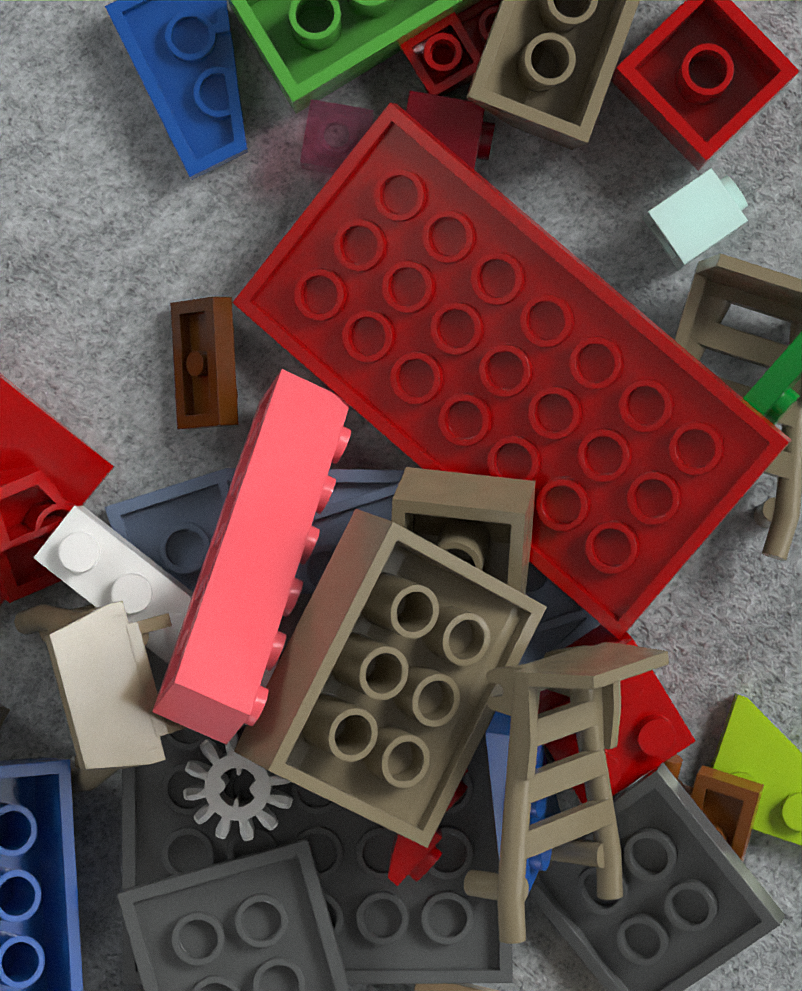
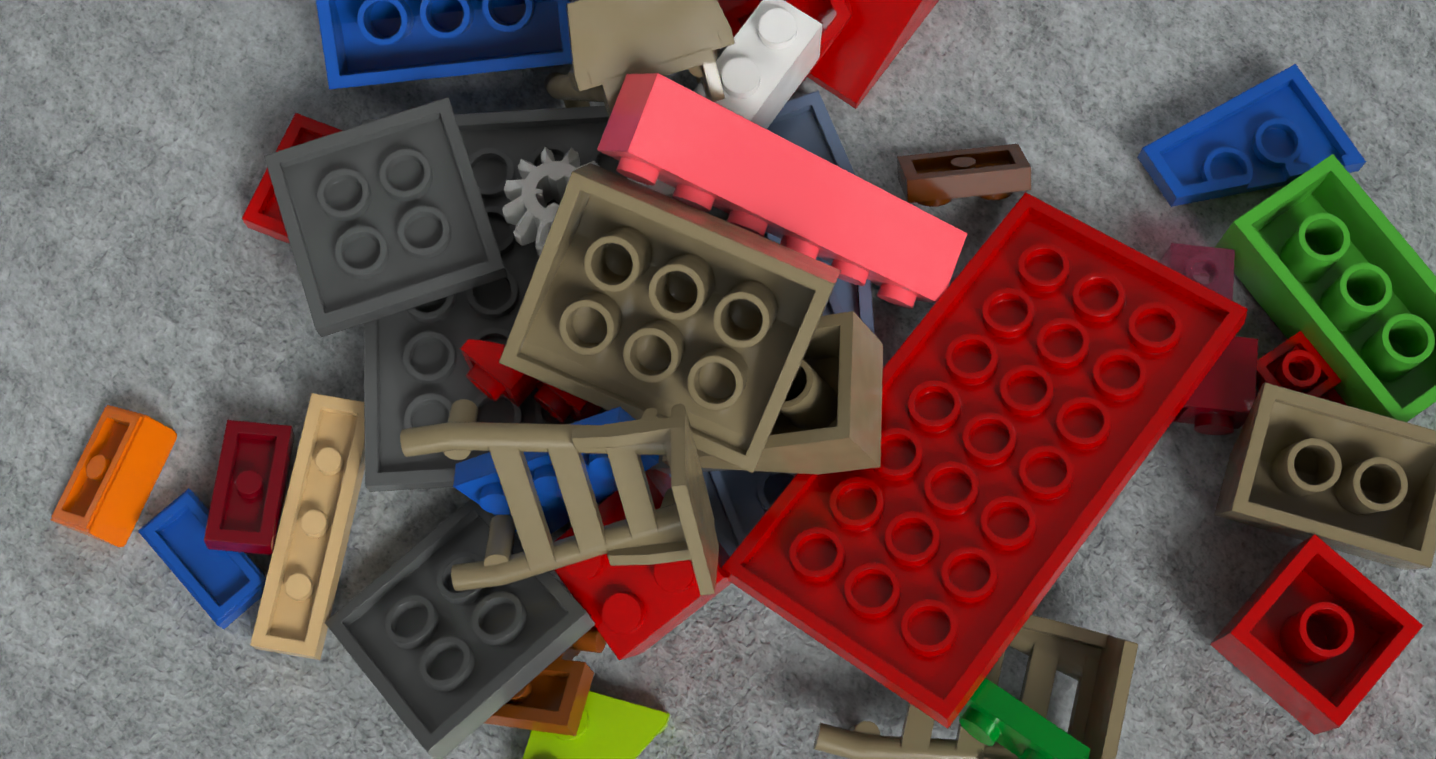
camera: 90 degrees right, 15 degrees down
(697, 217) = (1168, 640): light aqua brick -> none

